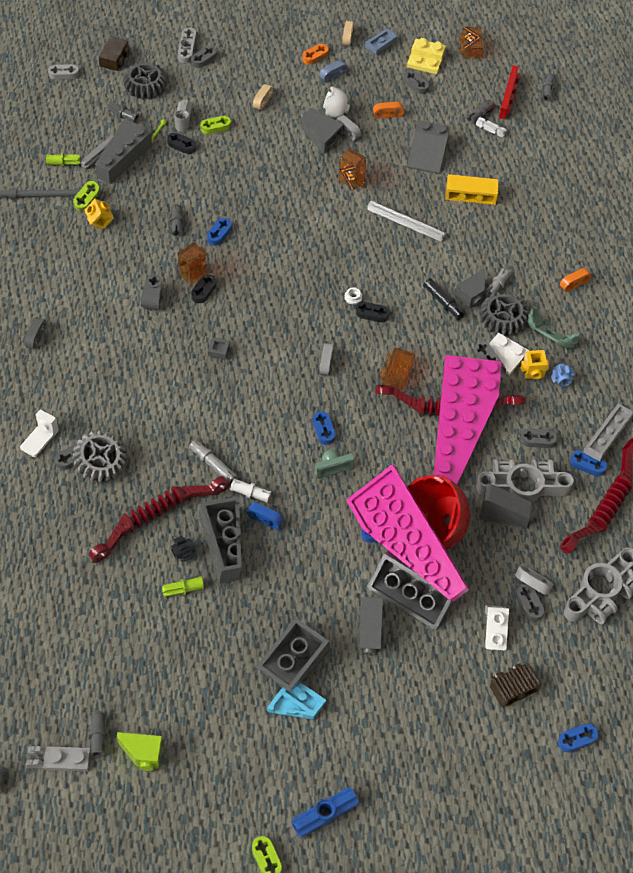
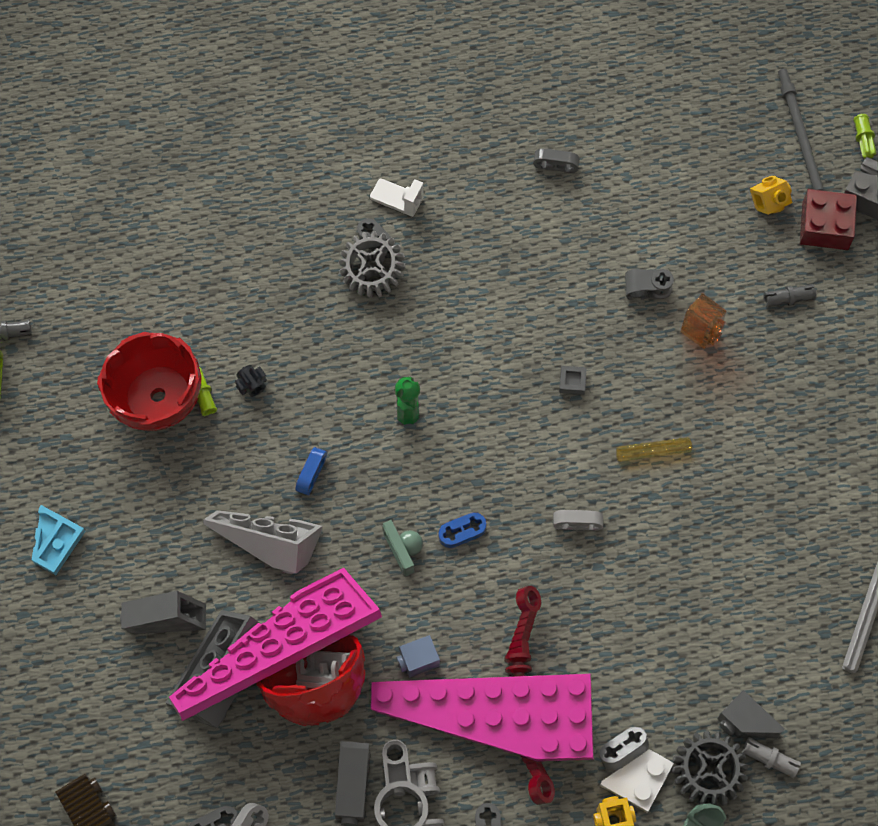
camera: 85 degrees right, 10 degrees up
(84, 195) = (803, 175): lime beam -> none
(125, 188) = (828, 219): none -> dark red brick
(178, 494) = (309, 342): dark red piece -> none
(178, 593) = (146, 366): none -> red piece
(200, 287) = (673, 347): black beam -> none
(207, 456) = (384, 402): light grey pin -> none
(222, 233) = (783, 353): blue beam -> none
(222, 532) = (270, 423): dark grey wedge -> none
(225, 441) = (407, 400): none -> green piece
(250, 490) = (348, 449): white pin -> none
(278, 312) = (653, 449): none -> clear yellow axle
(294, 655) = (107, 527): dark grey slope -> none
(321, 539) = (275, 544): none -> light grey wedge
(353, 292) = (707, 542): white plate -> none
(372, 312) = (684, 576): black beam -> none
(397, 368) = (577, 618): clear orange brick -> none
(416, 462) = (418, 656): none -> sand blue brick
(432, 505) = (321, 668): none -> light grey hinge
(448, 303) = (714, 685): black pin -> none
(496, 627) = (174, 778): white bracket -> none

